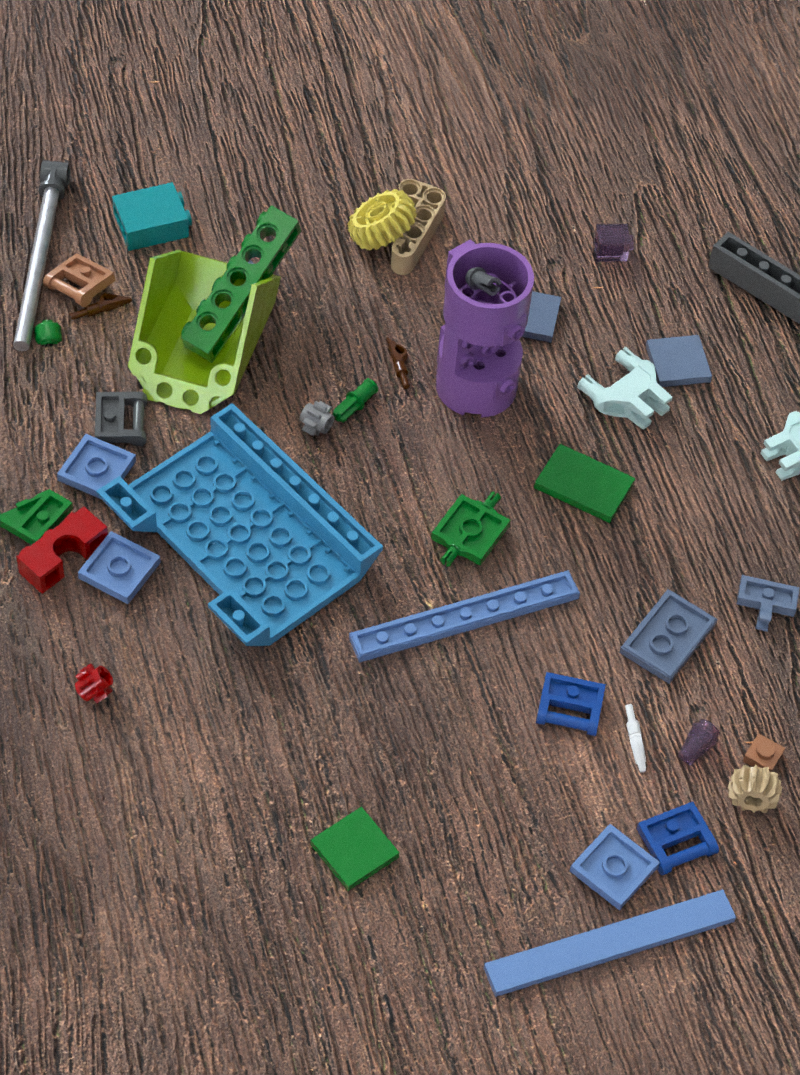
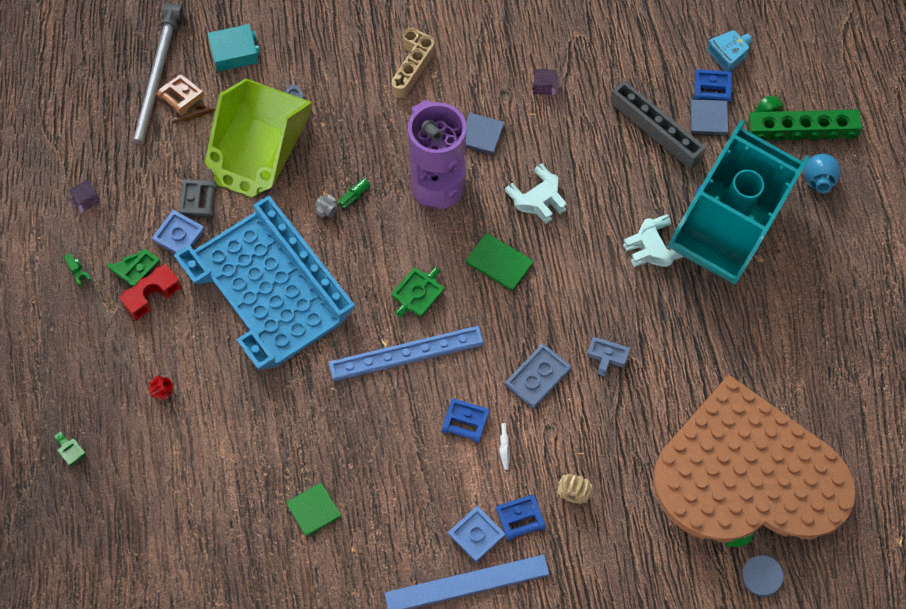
camera: 10 degrees right, 10 degrees up
(48, 333) = (157, 132): green piece -> none
(119, 567) = (185, 306): medium blue plate -> none
(210, 343) = (304, 90): green brick -> none
(382, 219) = (387, 59): light yellow gear -> none
(398, 360) = (387, 165): reddish brown hand -> none
(679, 360) = (577, 174): sand blue tile -> none
(699, 740) = (544, 452): clear purple cone -> none
(763, 753) = (587, 463): nougat plate -> none

